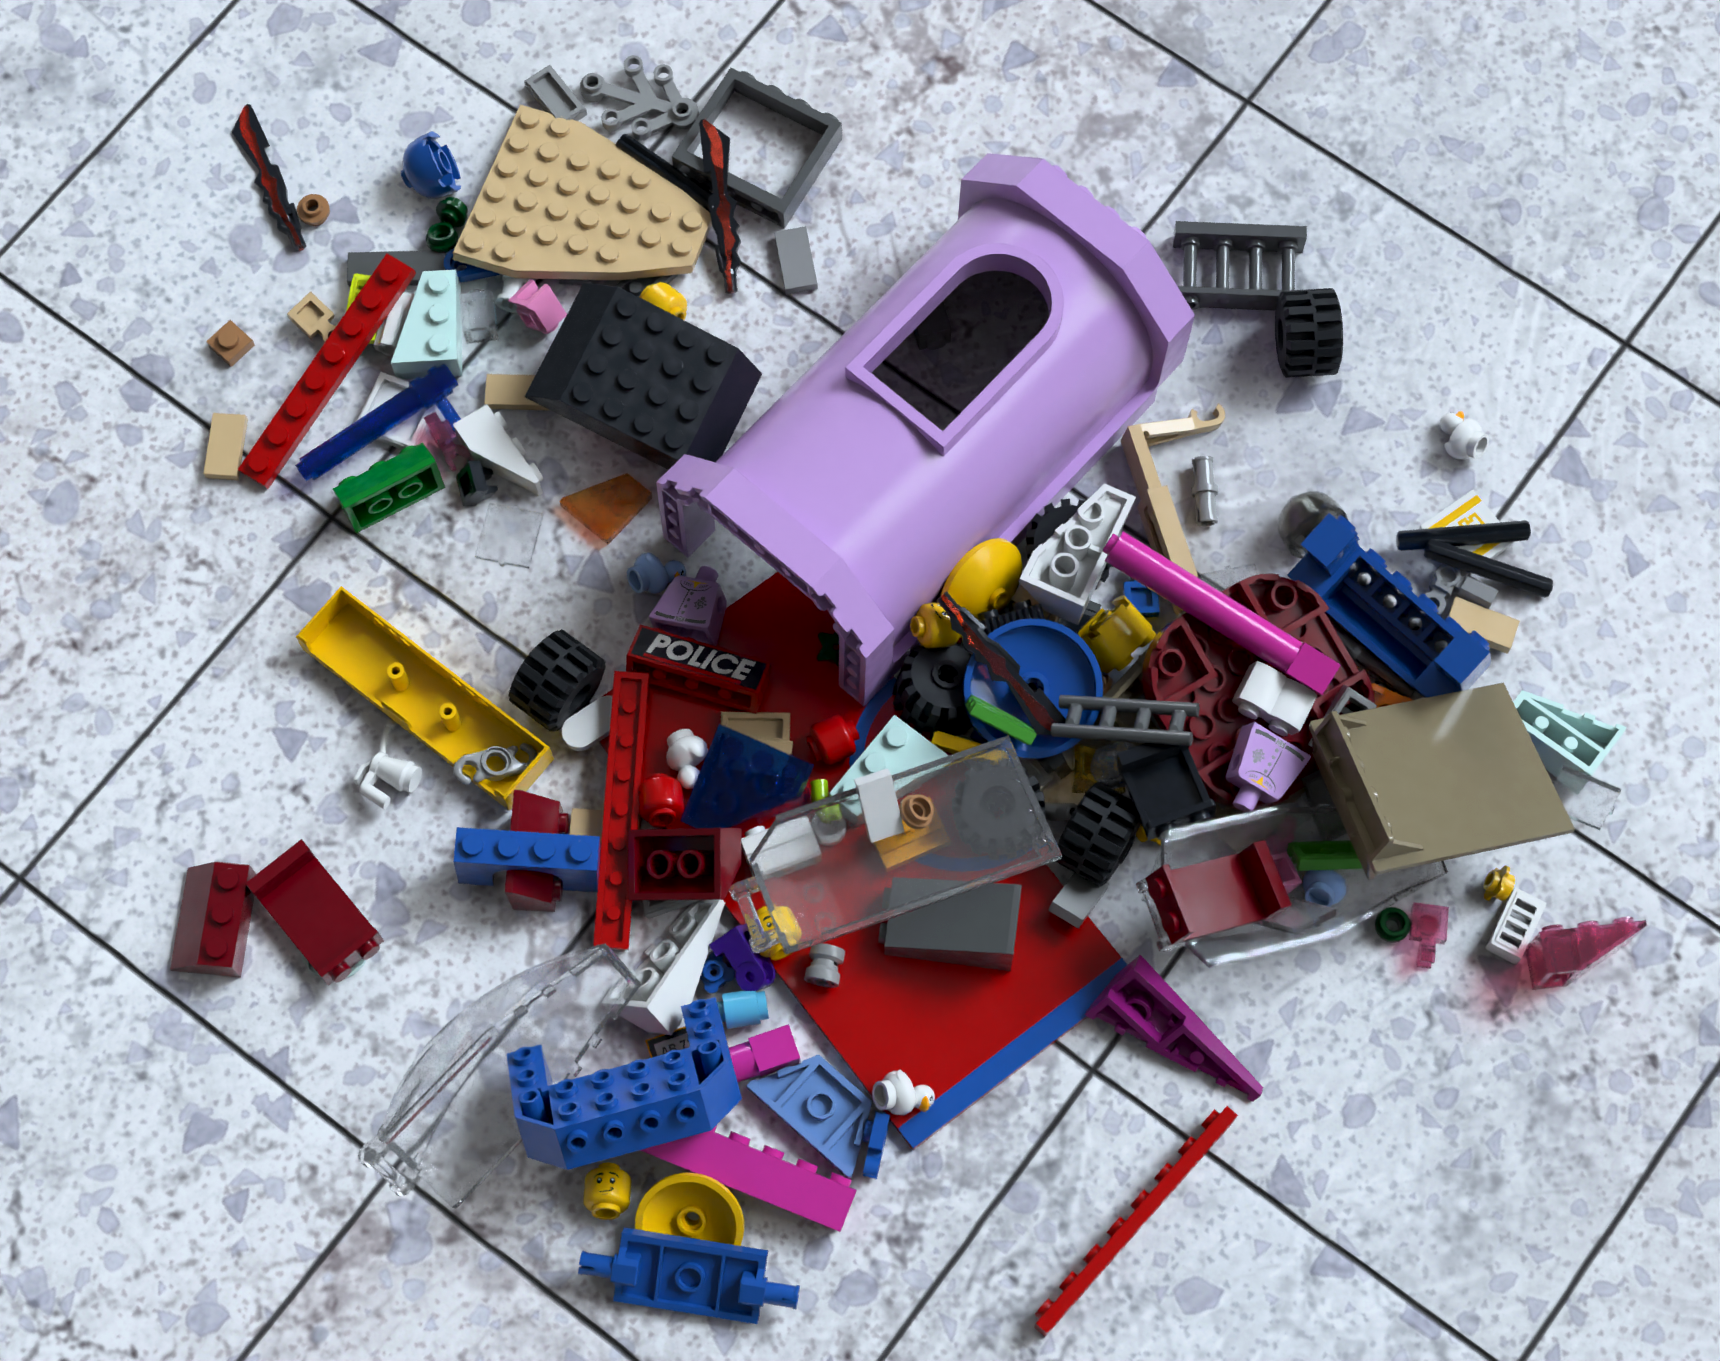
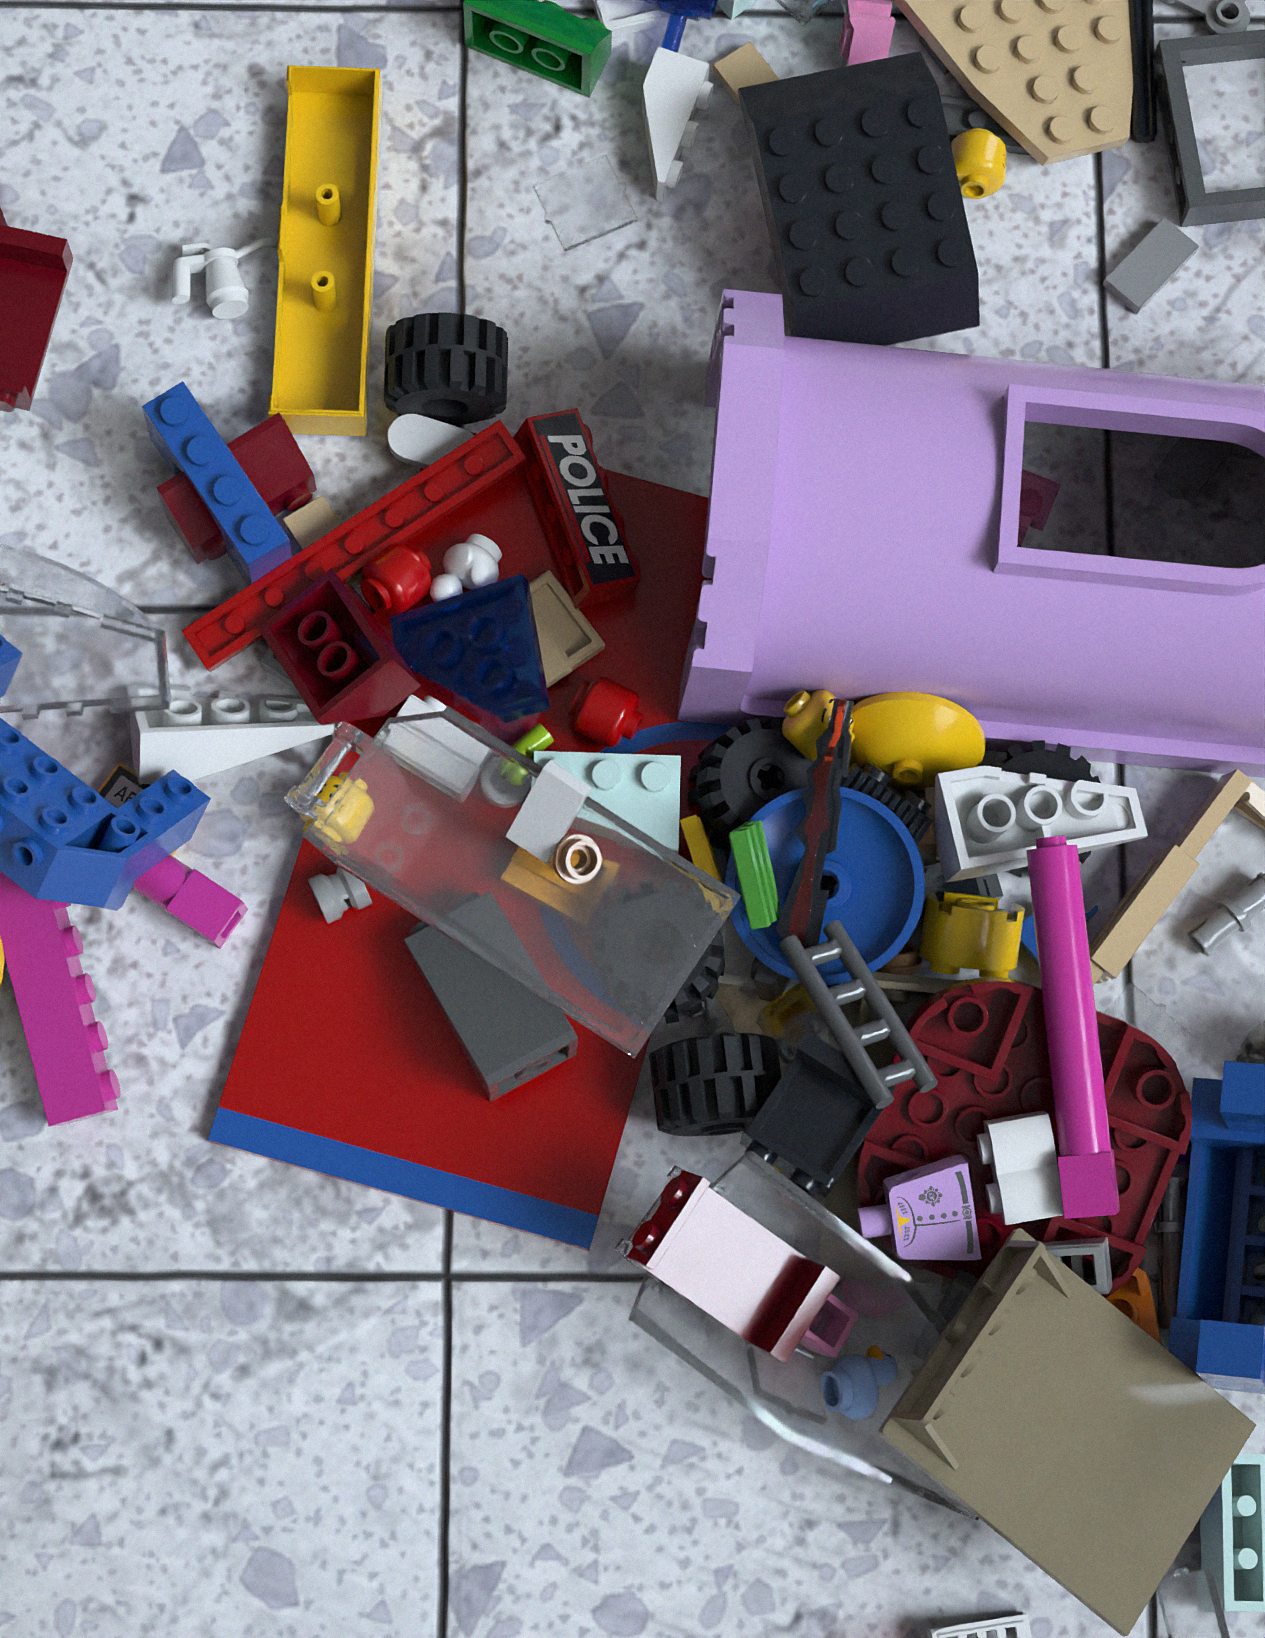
camera: 45 degrees right, 5 degrees up
(443, 434) = (638, 51): clear pink plate -> none
(472, 483) = (610, 118): black tile -> none
(478, 761) = (296, 357): light grey piece -> none
(608, 505) = (695, 276): clear orange wing -> none
(650, 574) = (651, 381): light blue animal -> none
(692, 607) = (644, 452): lavender torso -> none
(721, 206) = (1145, 137): black sword -> none
(723, 975) = (252, 793): blue plate -> none
(743, 1008) = (230, 840): medium azure brick -> none
(751, 968) = (274, 819): dark purple leg -> none
(818, 1108) = (178, 1005): medium blue wing -> none
(875, 1135) = (190, 1090): blue plate -> none
(899, 1096) = (248, 1077): white animal -> none
(1077, 900) = (623, 1116): light grey tile -> none
(1124, 1230) = (281, 1443): red plate -> none
(1152, 1011) = (558, 1291): magenta wedge -> none
(1323, 855) = (881, 1354): bright green tile -> none
(1394, 914) = (888, 1504): dark green plate -> none
(1428, 927) = (899, 1545): clear pink plate -> none
(1499, 884) = (1014, 1592): yellow plate -> none

